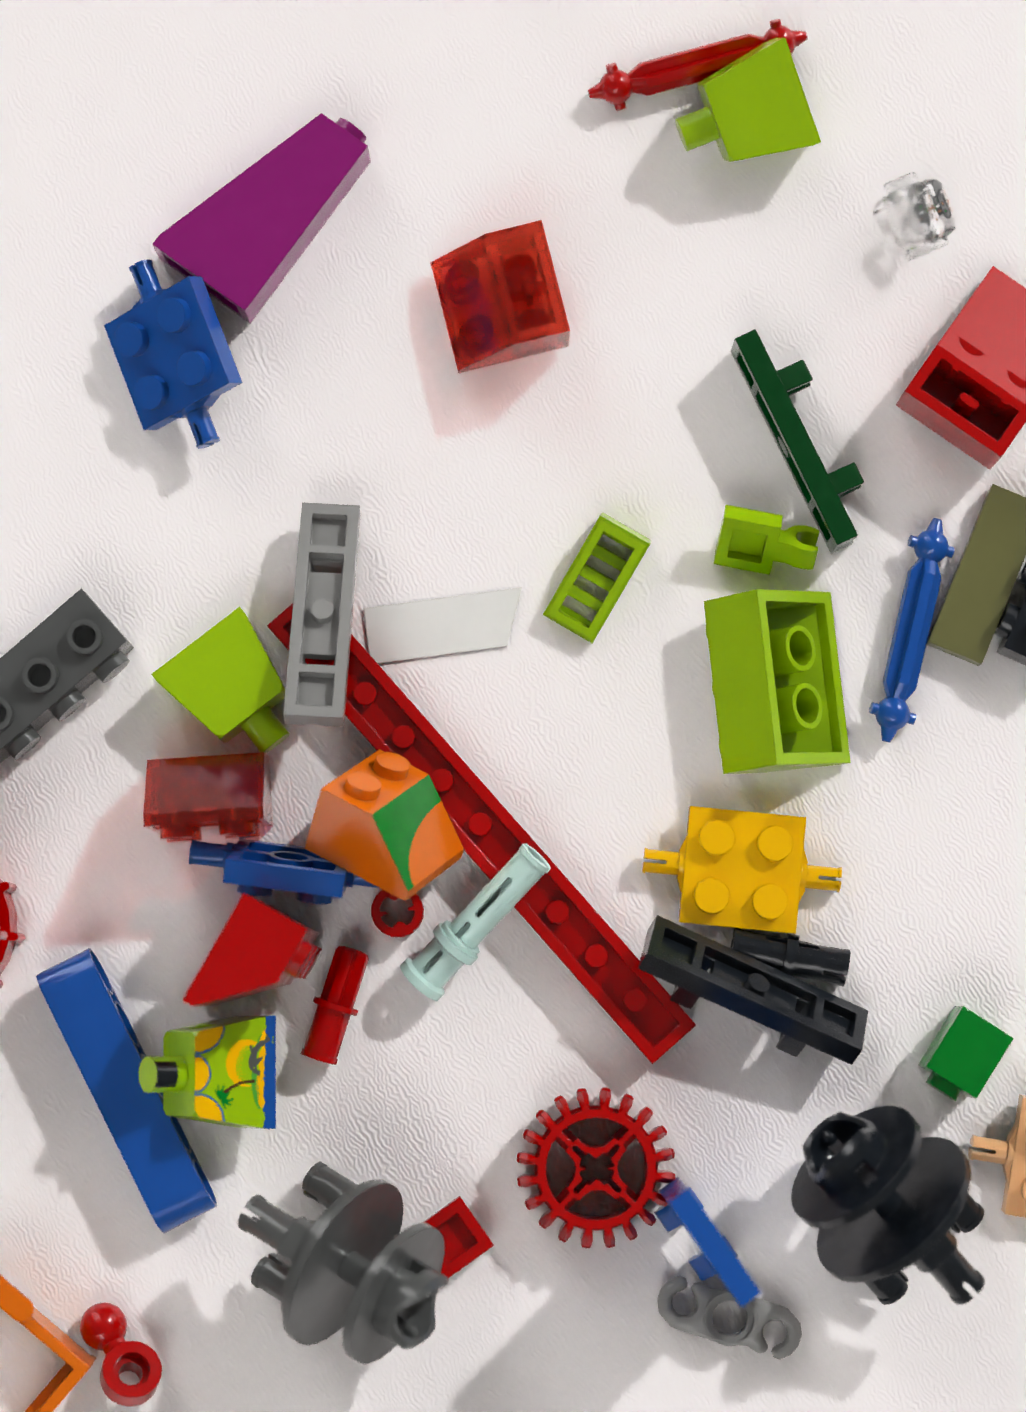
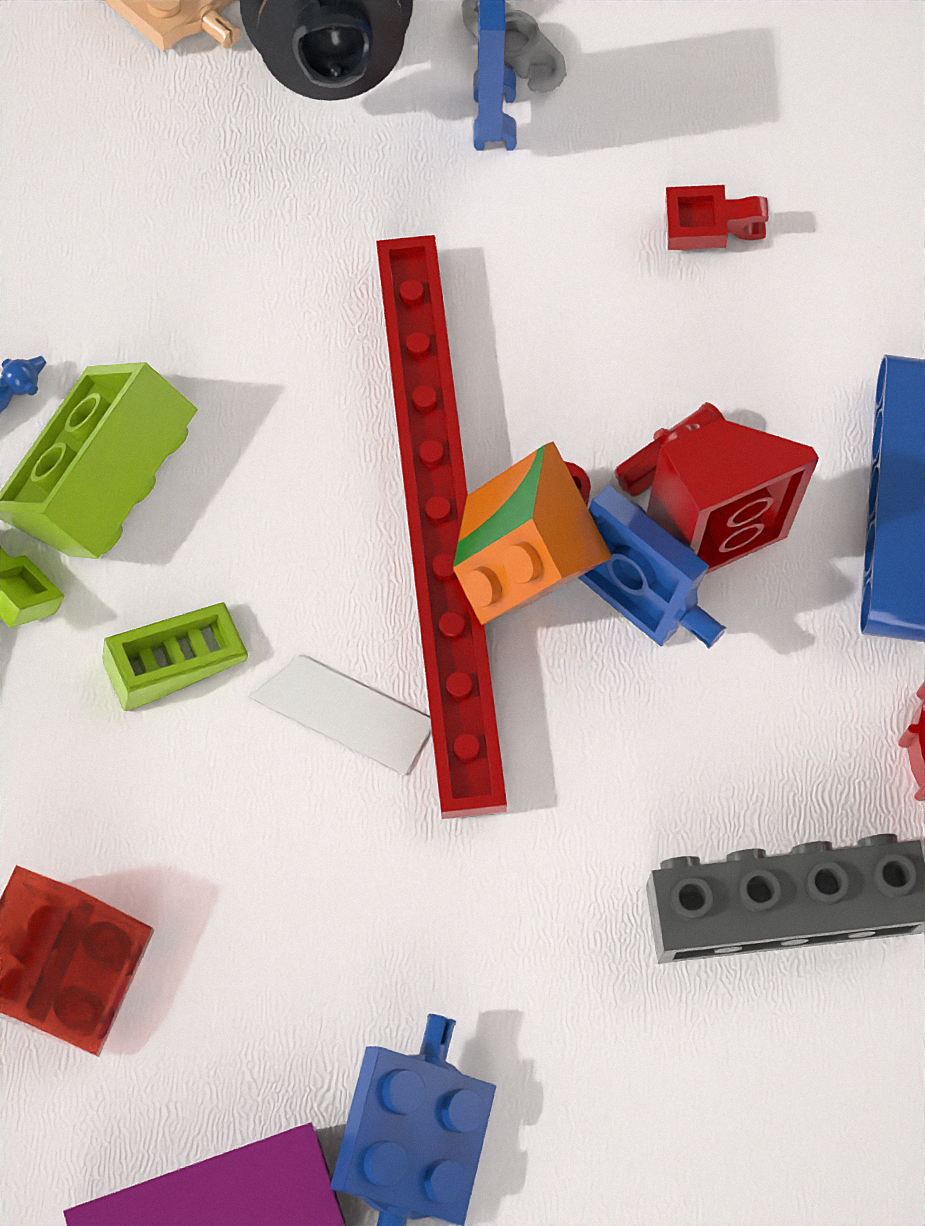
camera: 145 degrees left, 15 degrees down
(208, 794) = (667, 678): clear red slope -> none
(217, 1072) = (839, 431): torso -> none
(228, 683) = (581, 779): lime torso -> none
(322, 614) = (446, 768): light grey hinge -> none
(349, 1266) = (837, 232): dark grey piece -> none
(458, 940) = (526, 424): light aqua pin -> none
(633, 1202) = (514, 211): red gear -> none
(742, 869) = (245, 339): yellow plate -> none
(753, 990) = (310, 231): black hinge -> none
(794, 956) = (260, 251): black pin -> none
(964, 1054) = (181, 94): green brick -> none

